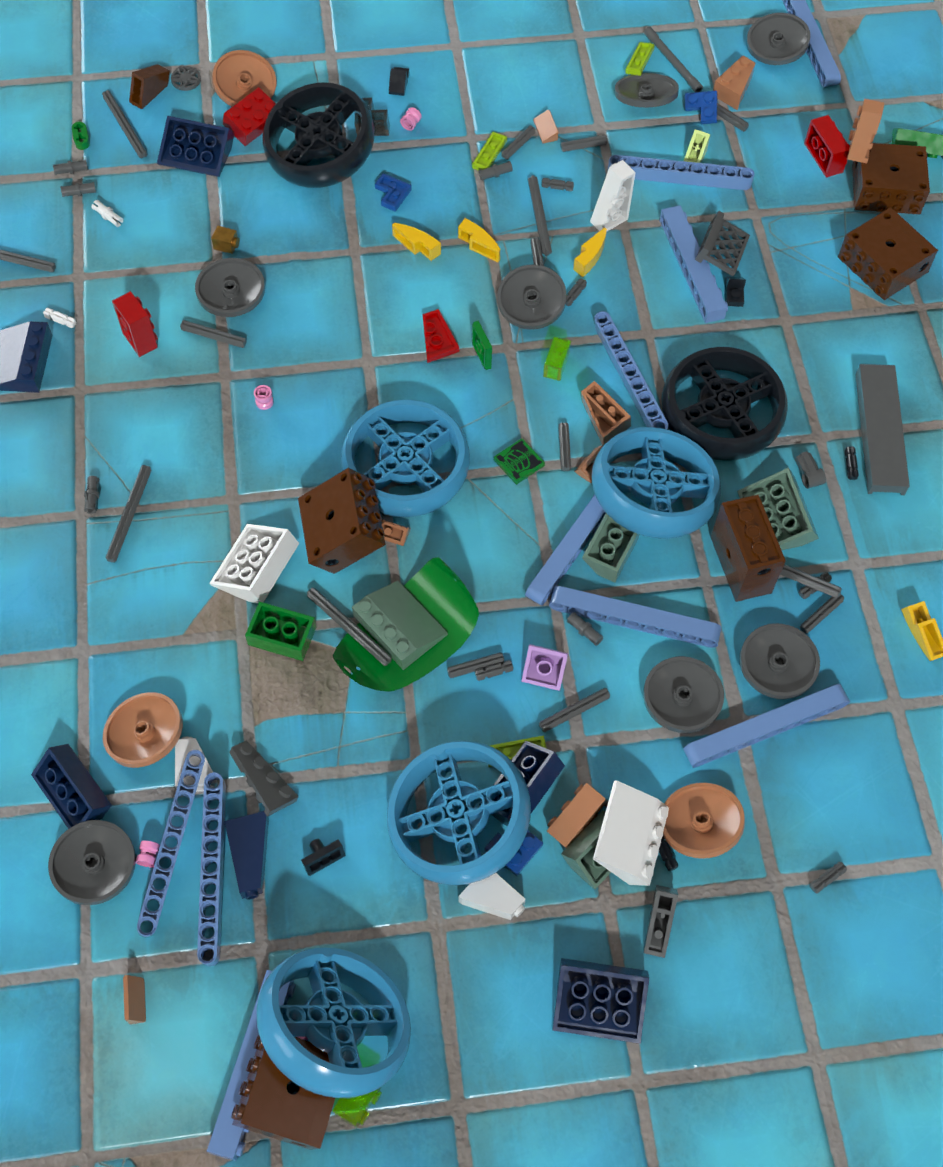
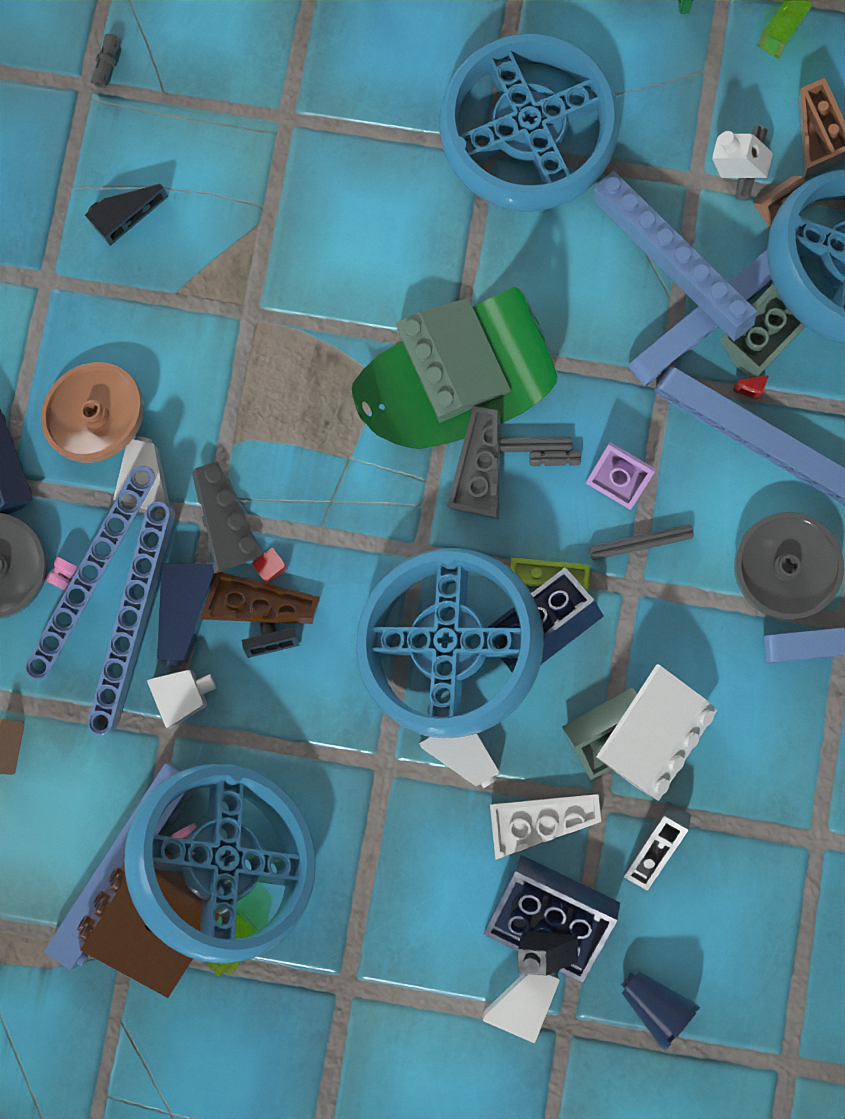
camera: 25 degrees right, 20 degrees up
(128, 514) = (146, 101): dark grey axle -> none
(129, 589) = (121, 212): none -> black slope
(255, 562) = (291, 219): white slope -> none
(264, 917) = (180, 695): none -> white torso
(281, 631) = (297, 327): green brick -> none
(300, 831) = (253, 601): none -> reddish brown wing
(307, 803) = (269, 565): none -> slope
(341, 521) = (415, 196): reddish brown gear -> none
(349, 626) = (387, 344): dark grey axle -> none
(395, 532) = (477, 222): nougat slope -> none
(442, 695) = (478, 469): none -> dark grey wing
(519, 461) = (682, 167): tile -> none
(525, 853) = (490, 688): blue plate -> none
(533, 513) = (675, 256): none -> medium blue brick
(556, 441) = (741, 156): none -> white torso
(563, 931) = (538, 821): none -> white wing
(576, 814) = (599, 684): nougat wedge -> none
(585, 629) = (691, 436): dark grey pin -> none
(602, 1072) = (523, 1005): none -> white slope
(605, 1023) = (546, 952): none -> black slope
(614, 585) = (751, 387): none -> red slope
(667, 855) = (694, 766): black axle -> none
(703, 820) = (755, 740): nougat dish -> none
(703, 1040) = (658, 1007): none -> dark blue cone

